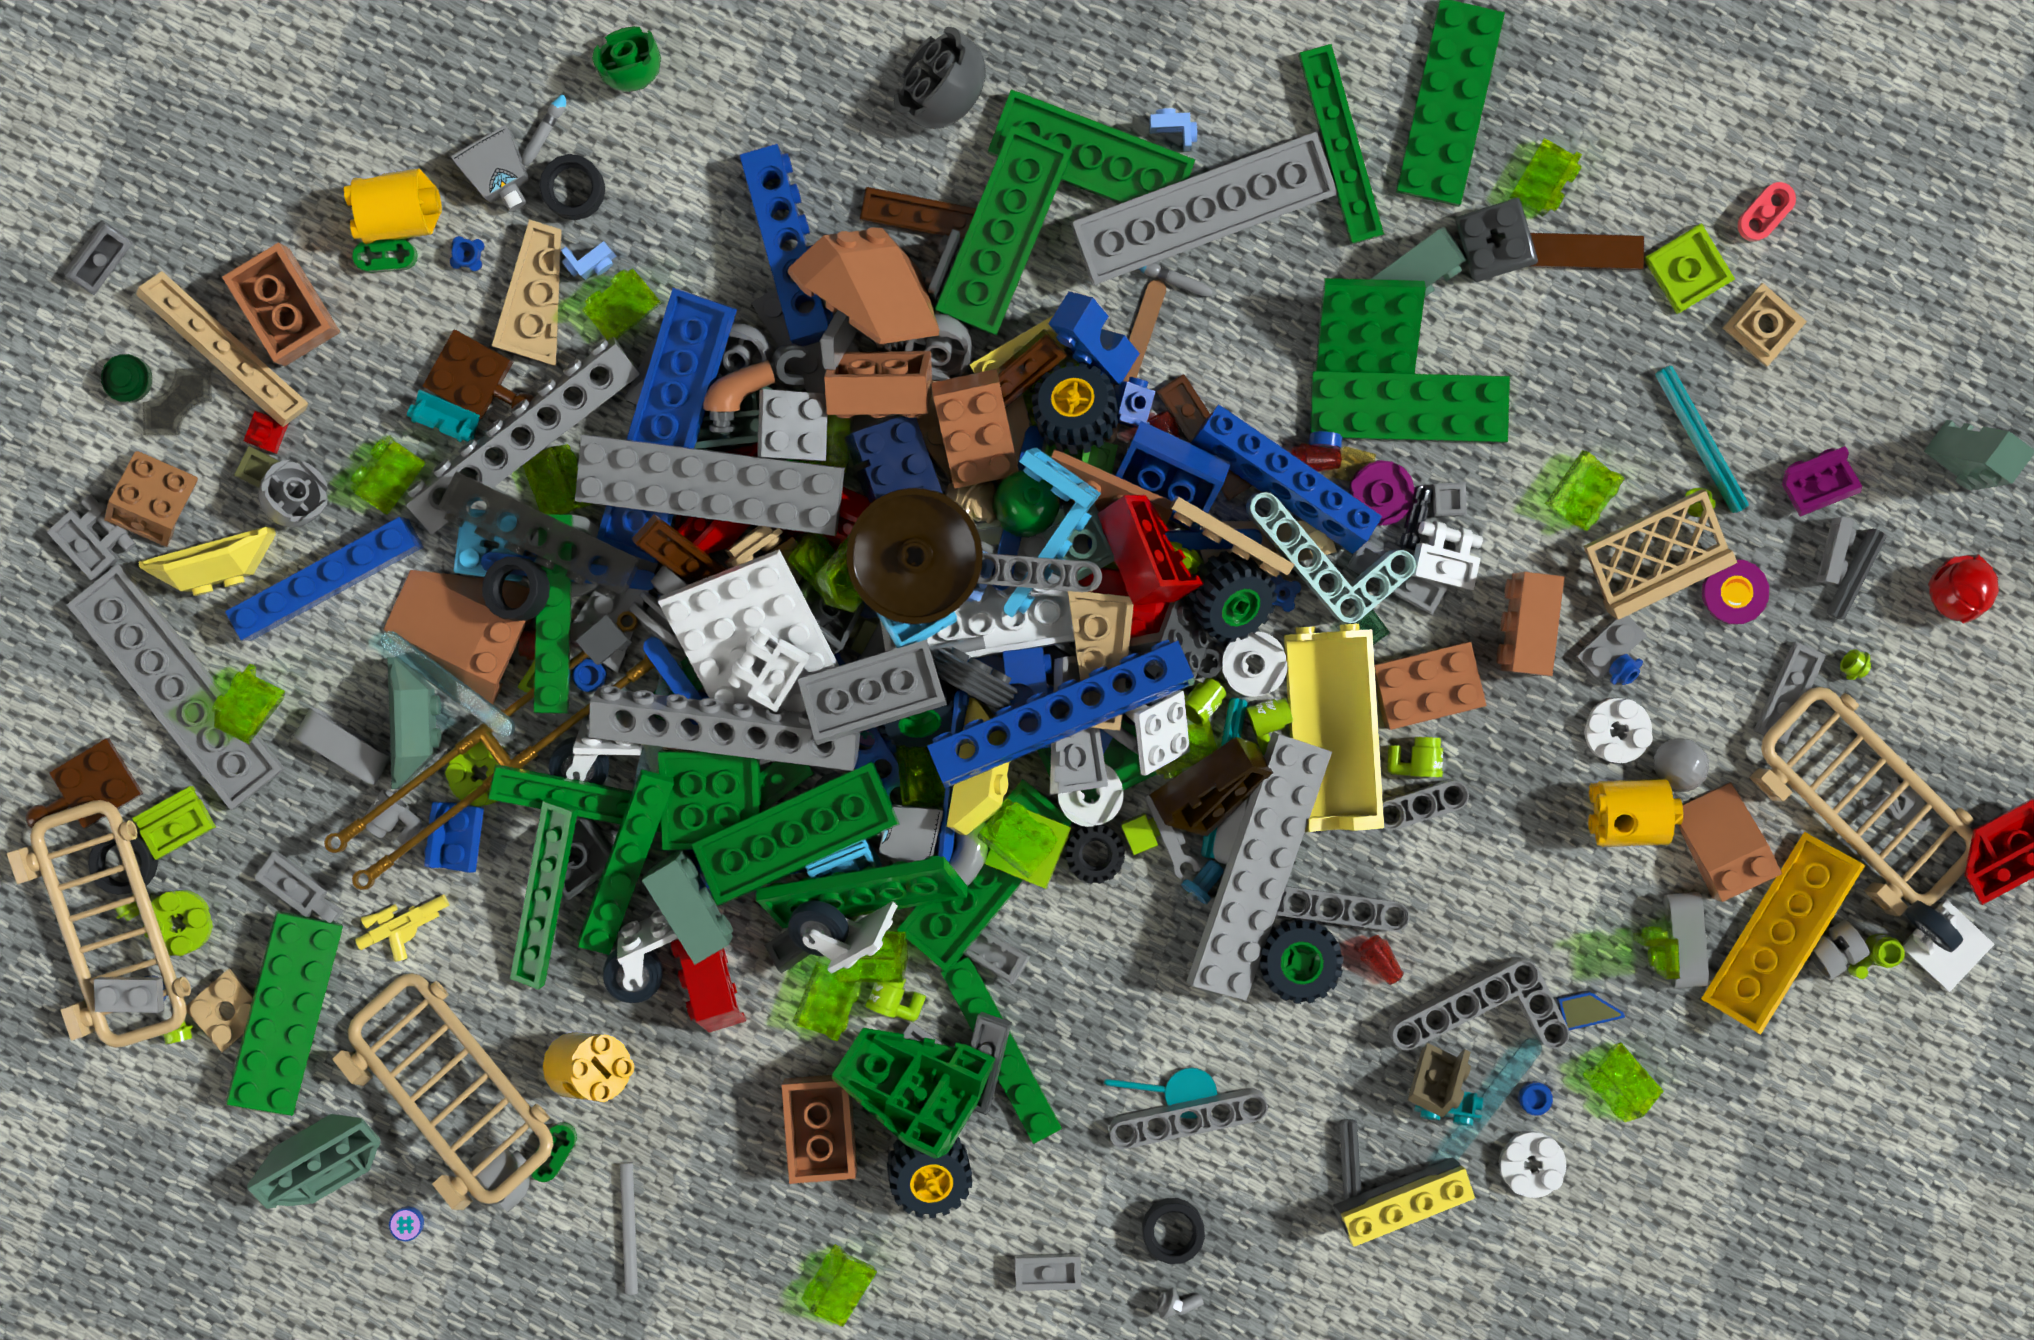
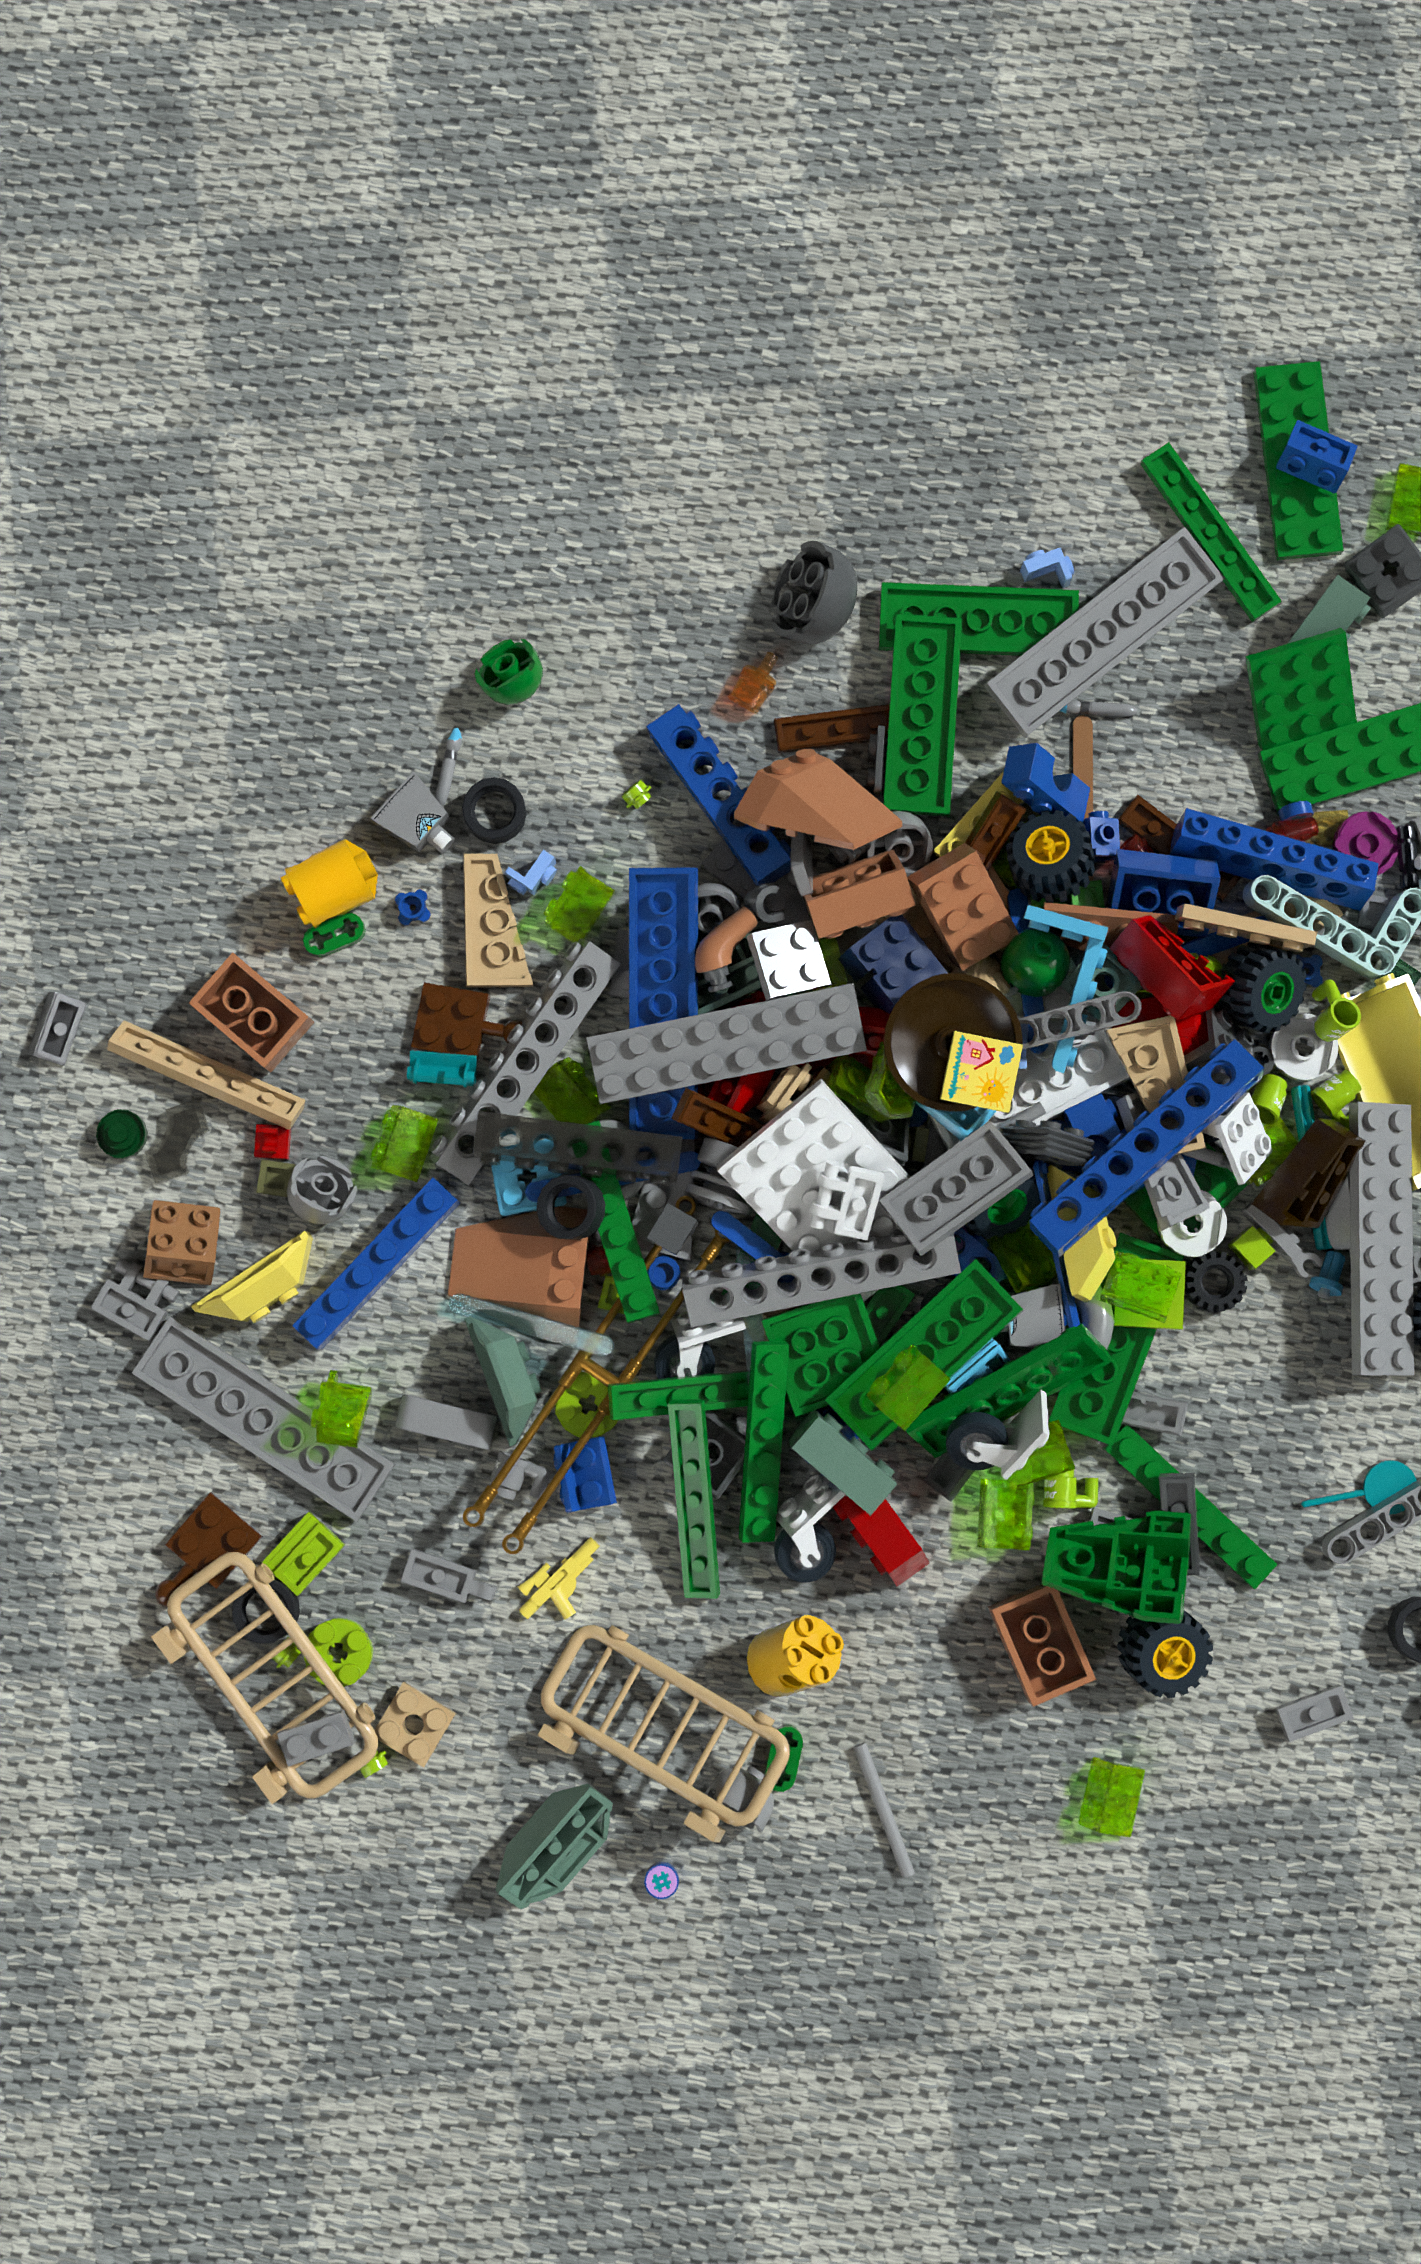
camera: 20 degrees left, 5 degrees down
(284, 1013) = (473, 1708): green plate -> none
(712, 216) = (637, 794): none -> lime plate
(766, 860) = (907, 1387): none -> clear neon green bracket
(859, 147) = (754, 684): none -> clear orange piece
(930, 593) = (981, 1072): none -> light yellow tile
(1294, 647) = (1338, 1017): none -> lime piece
(1465, 105) = (1316, 456): none -> blue bracket

